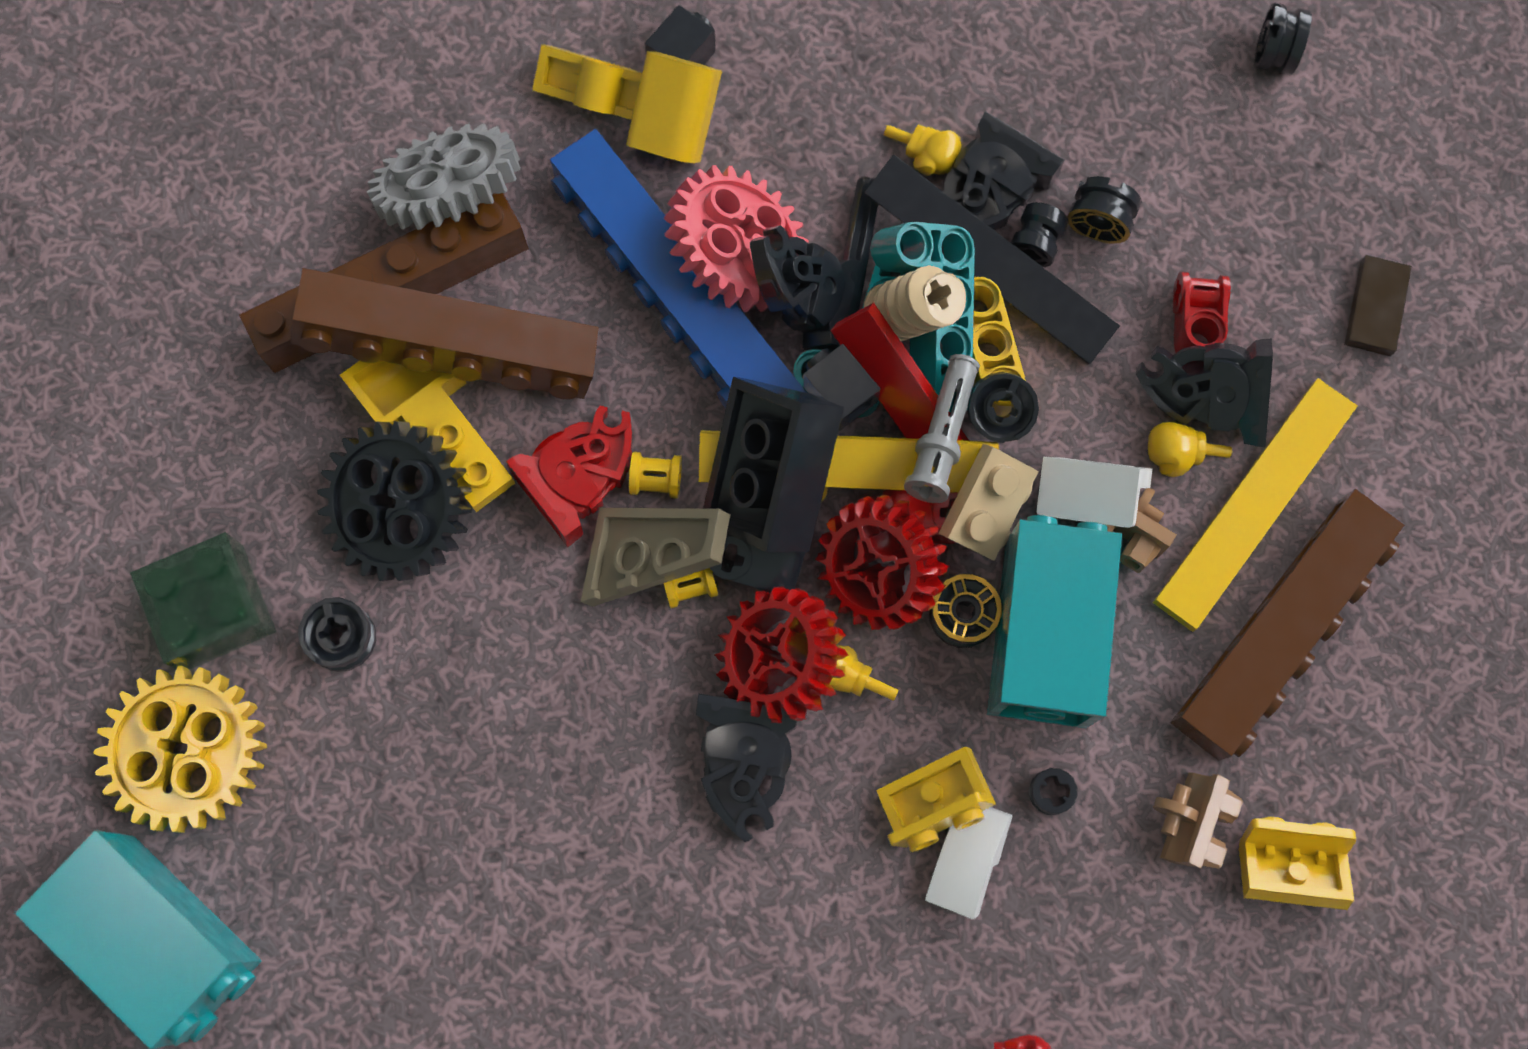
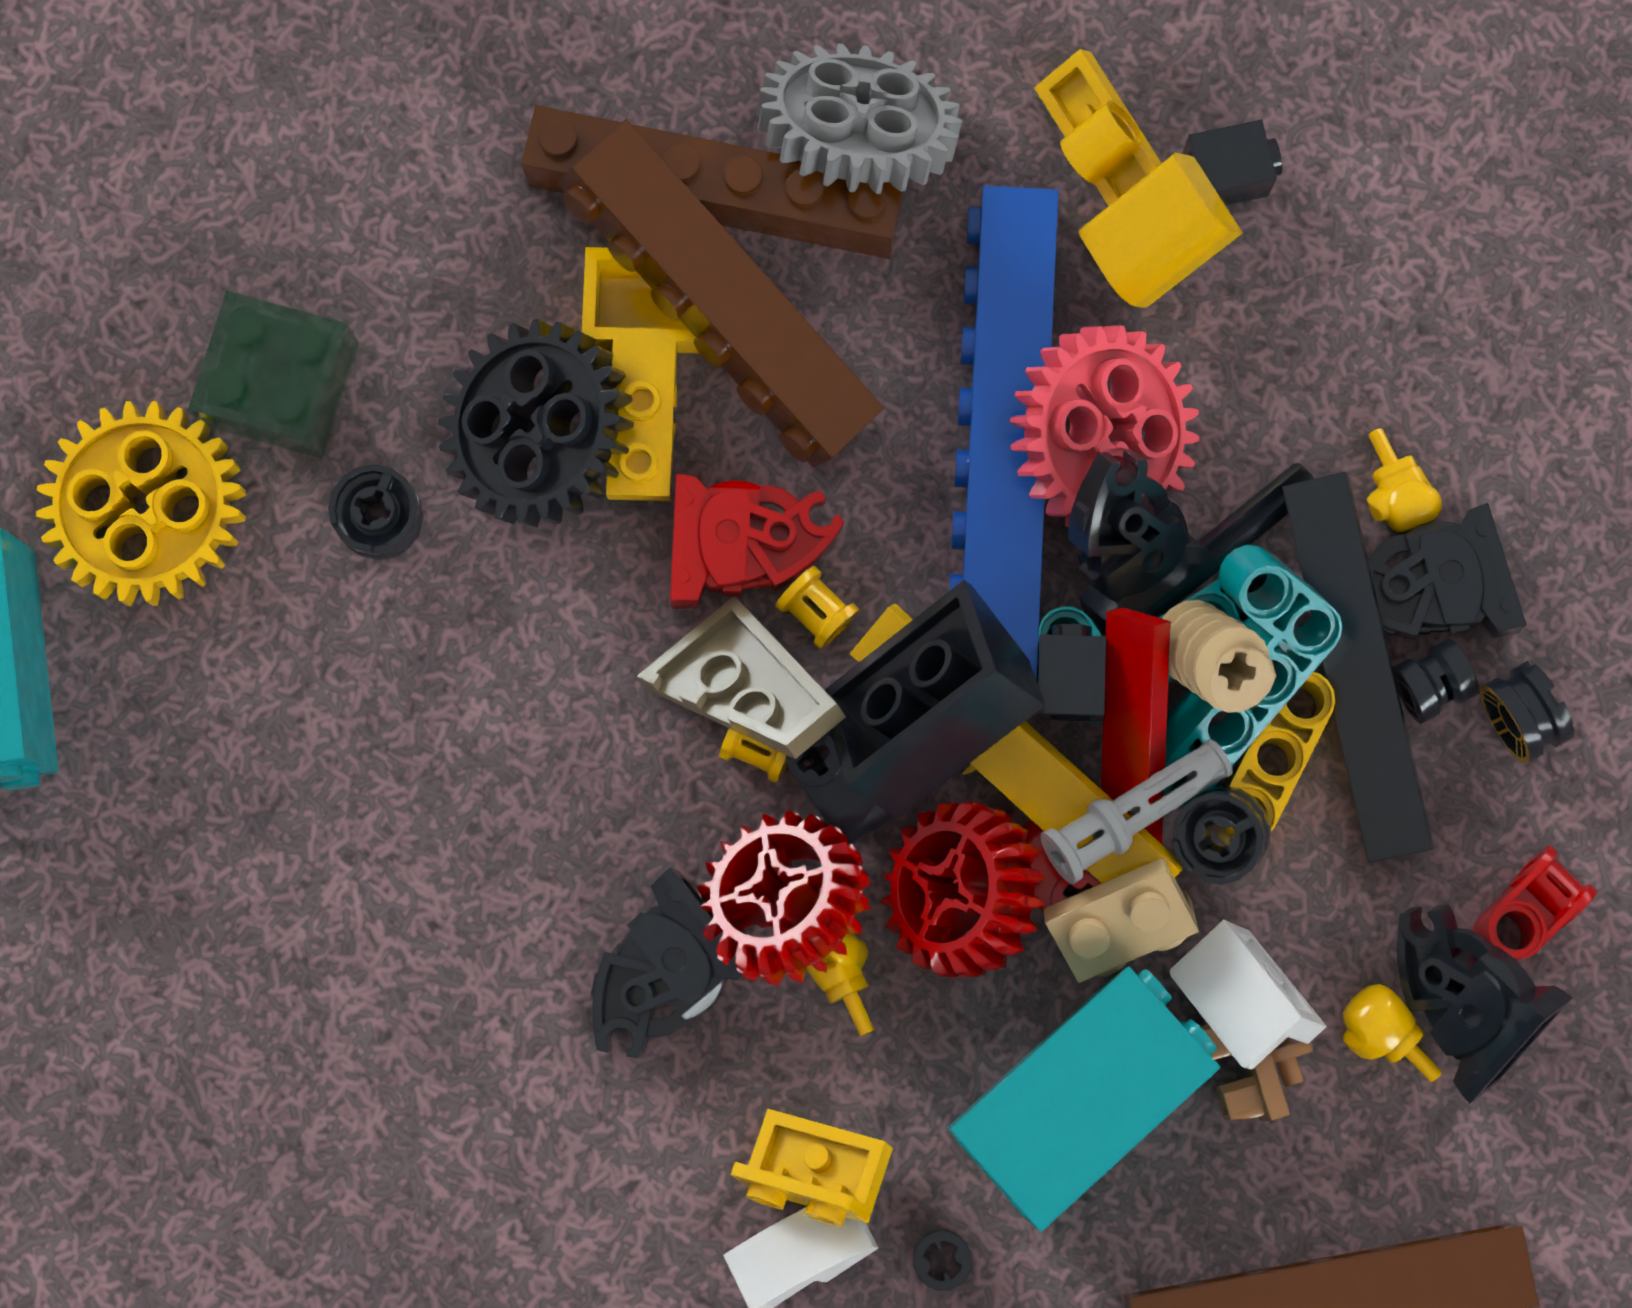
camera: 45 degrees right, 5 degrees up
(965, 590) = (1032, 992): black wheel -> none
(1254, 505) = (1414, 1152): yellow tile -> none

